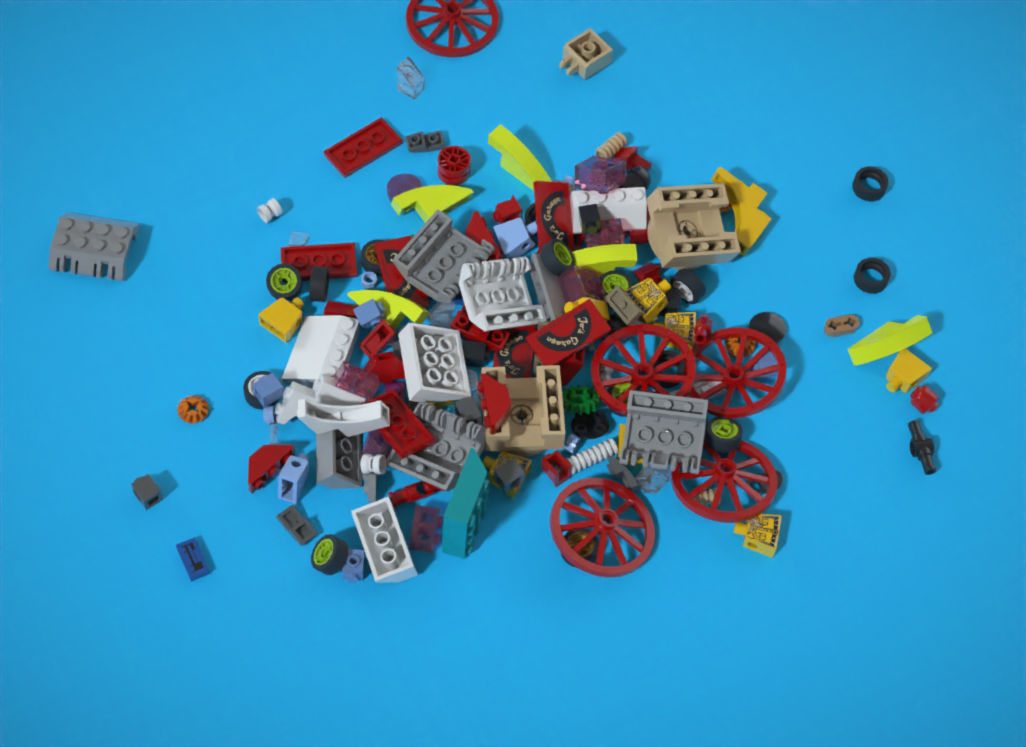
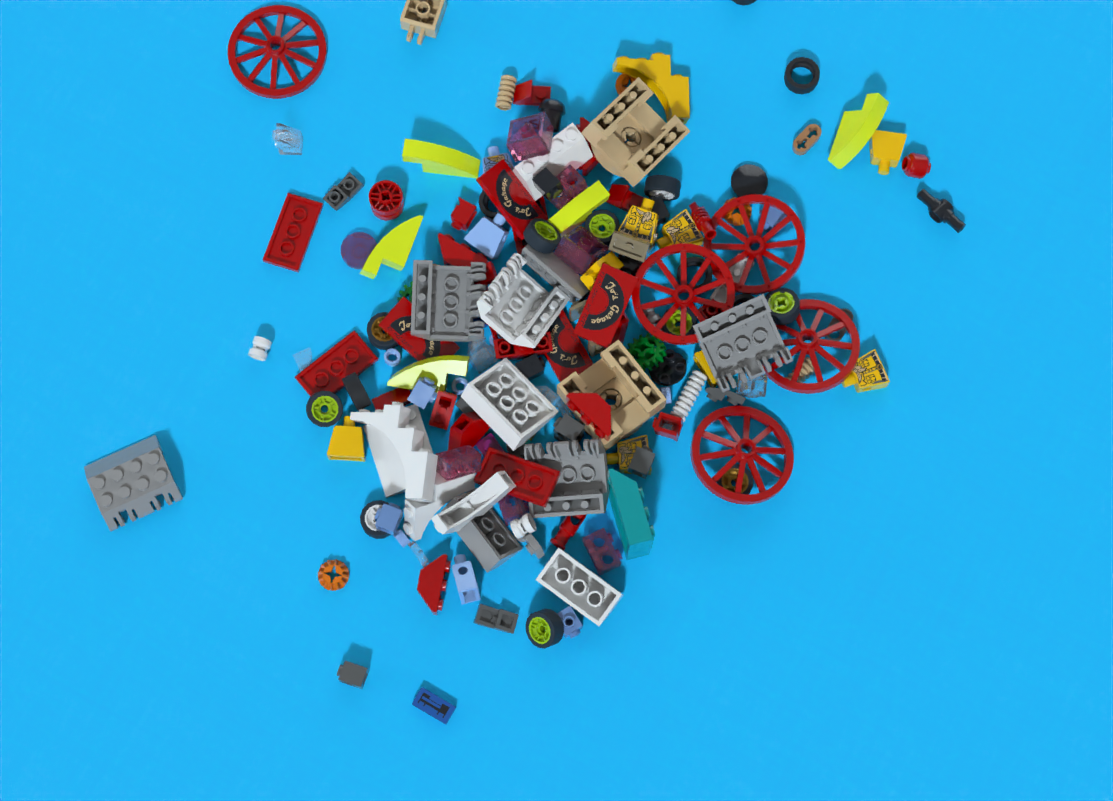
camera: 30 degrees left, 15 degrees up
(328, 337) = (417, 462): none -> white arch

